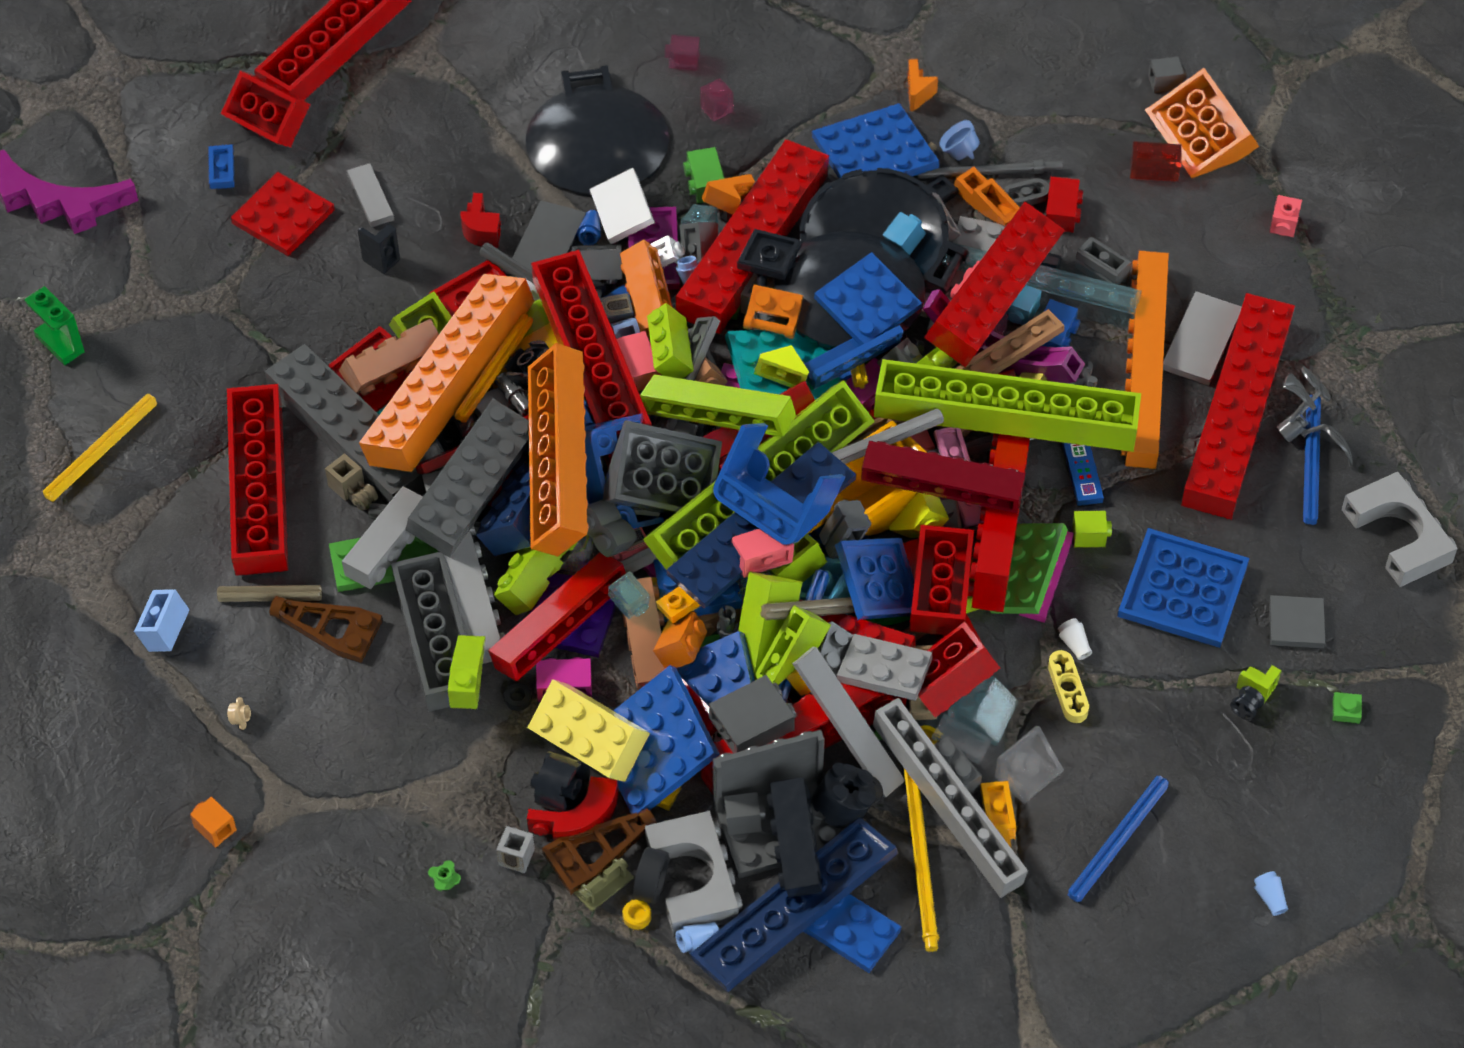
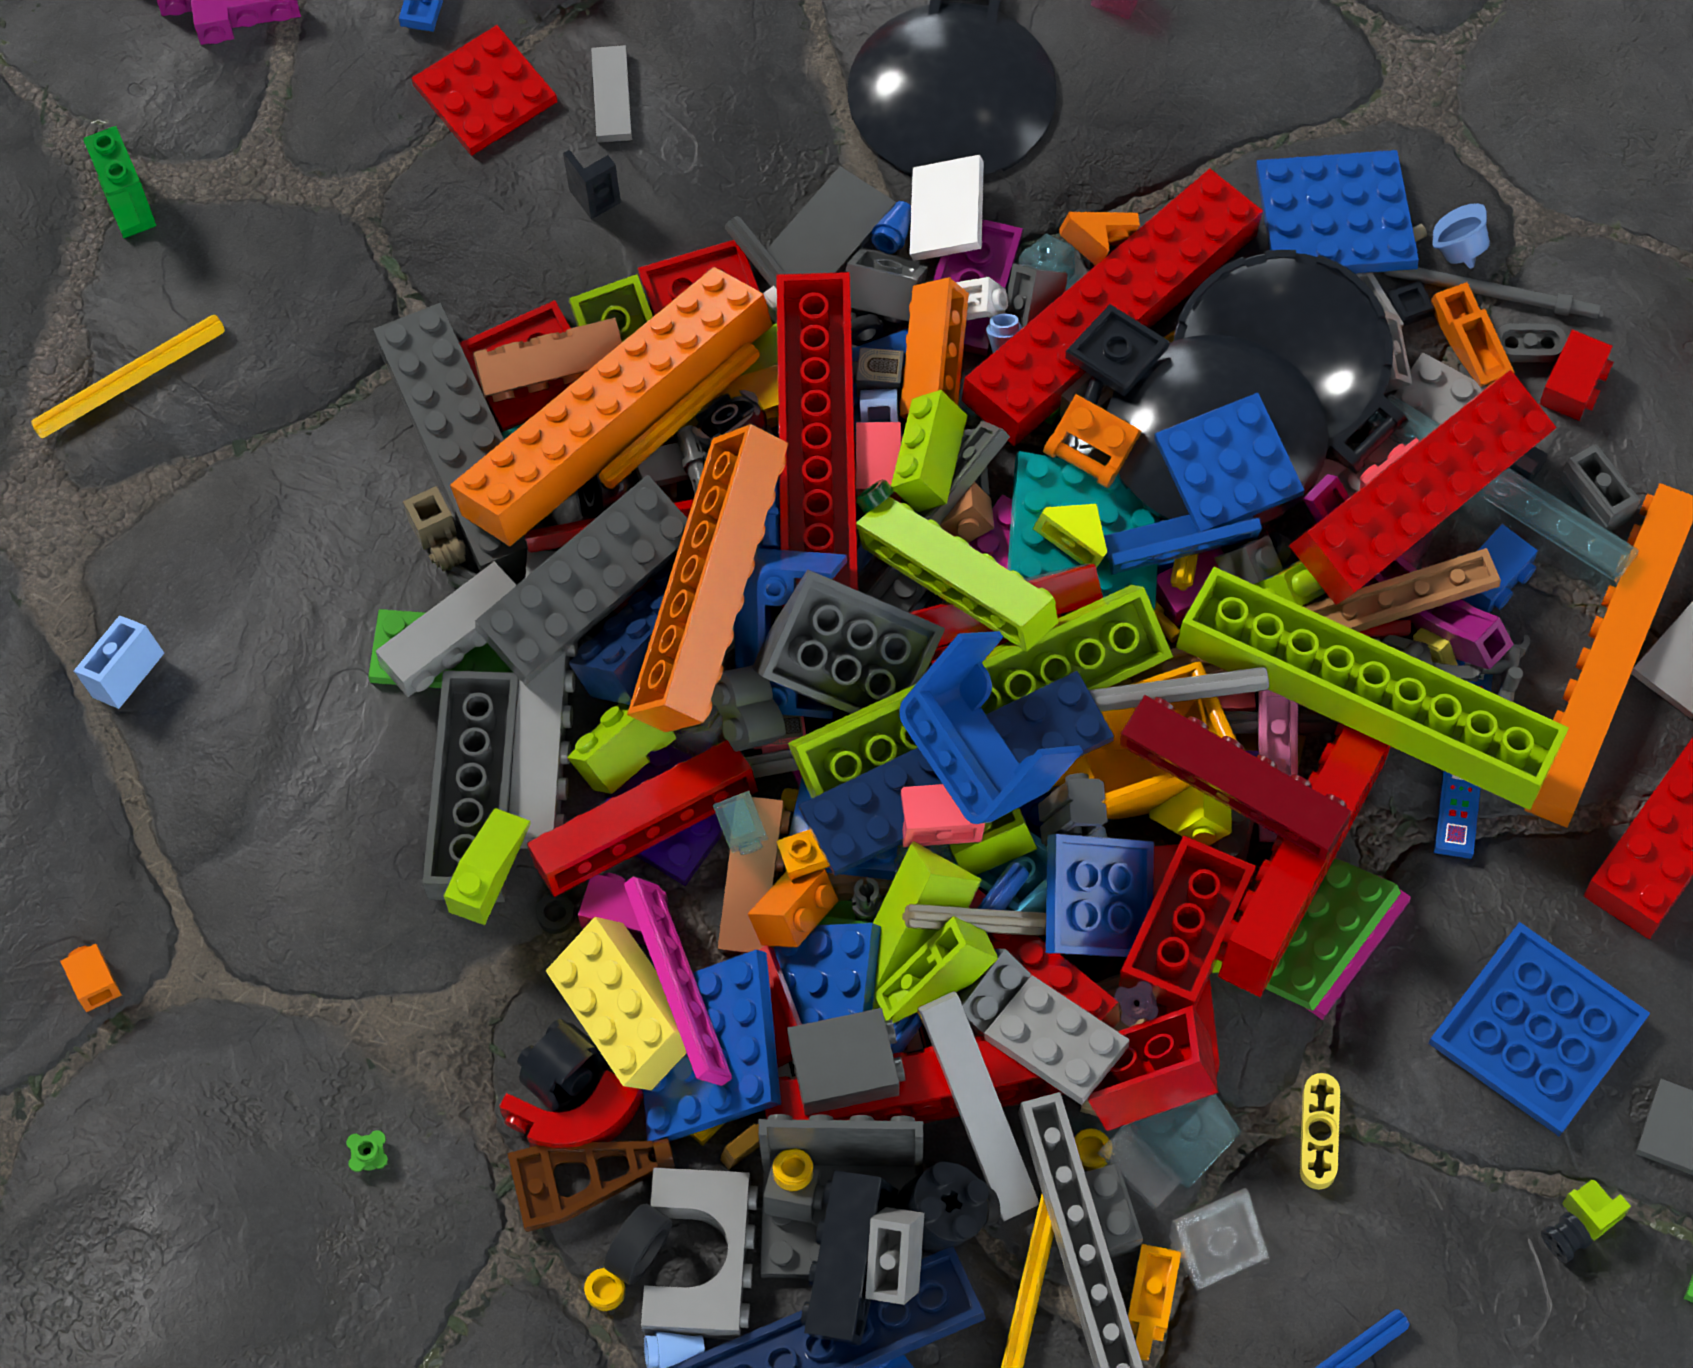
camera: 20 degrees right, 10 degrees up
(239, 713) = (177, 827): tan plate -> none
(257, 480) = (312, 488): red brick -> none
(268, 593) = (277, 659): dark tan axle -> none
(357, 637) = (371, 759): reddish brown plate -> none
(480, 226) = (740, 184): red brick -> none
(515, 849) = (470, 1146): light grey brick -> none
(604, 885) = (575, 1234): olive hinge -> none
(622, 702) = (678, 982): none -> dark pink tile
(645, 376) = (874, 495): none -> dark green tile
(699, 795) = (741, 1147): none -> pearl gold tile
(702, 167) = (1081, 183): bright green brick -> none
(716, 99) = (1137, 76): clear pink brick -> none
(740, 795) = (792, 1169): none -> yellow tile
(827, 826) = (894, 1255): none -> light grey brick
(905, 232) = (1326, 365): dark azure brick -> none
(919, 87) = (1435, 134): orange slope -> none
(935, 632) = (1142, 993): none -> clear purple plate
(1024, 305) = (1465, 522): medium azure brick -> none
(1075, 638) = (1355, 1061): white cone -> none
(1091, 529) = (1437, 898): lime brick -> none

